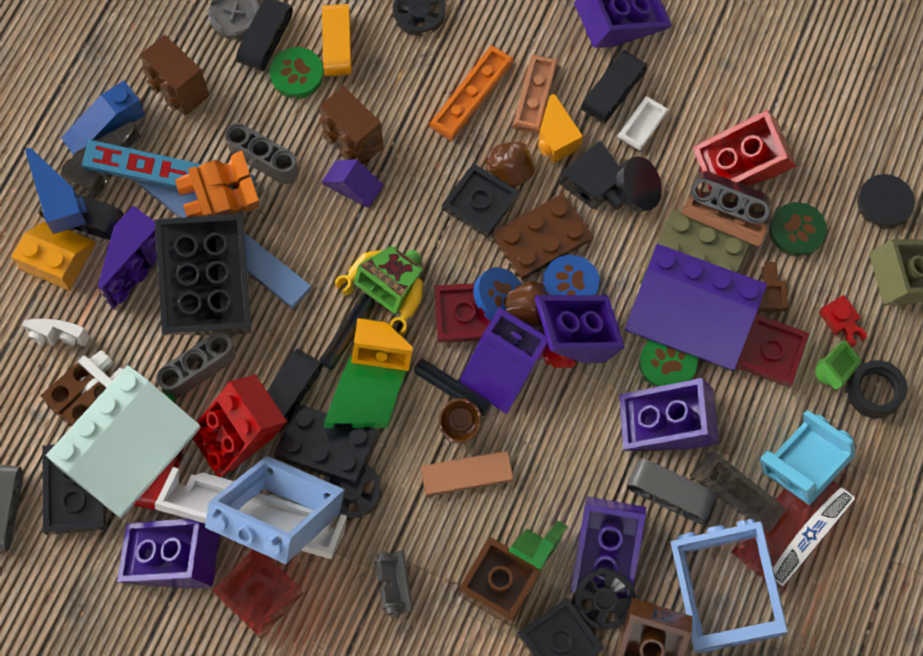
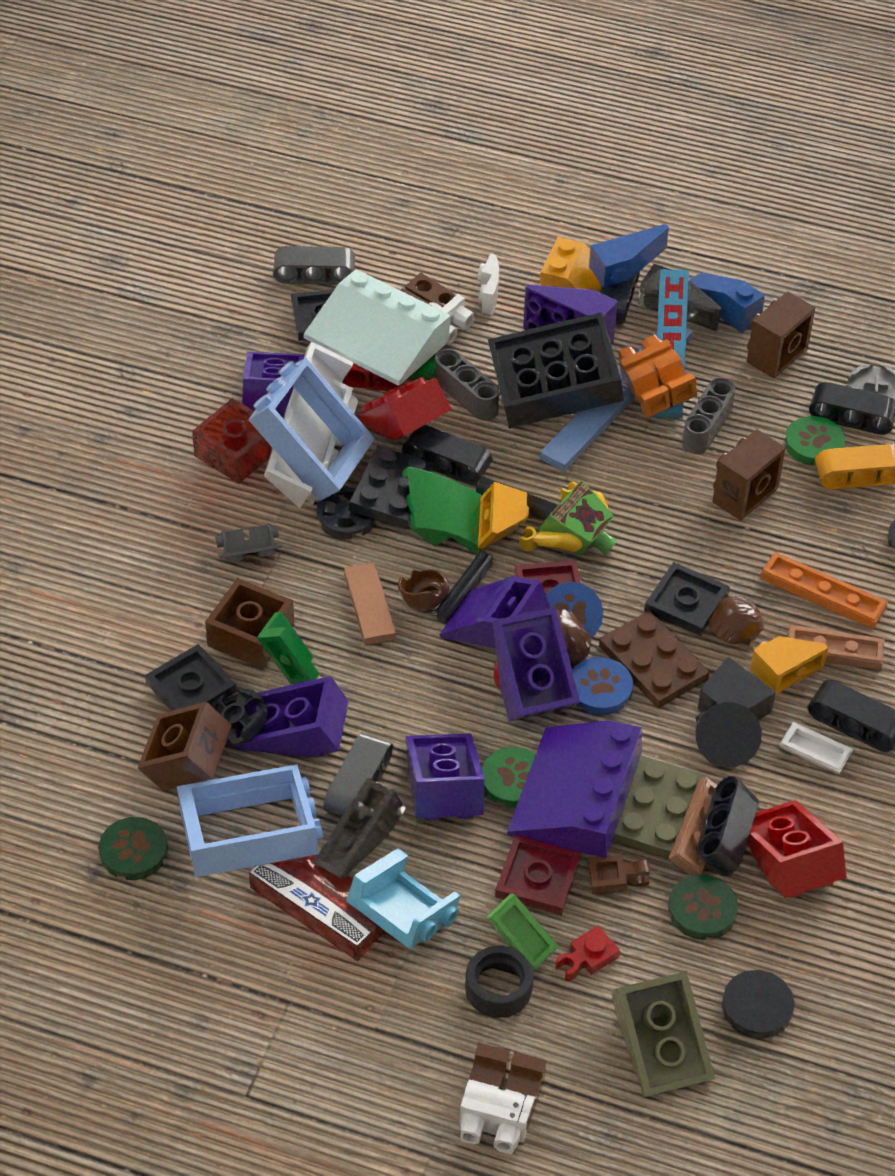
camera: 85 degrees right, 20 degrees down
(353, 181) = (689, 495): dark purple slope -> none

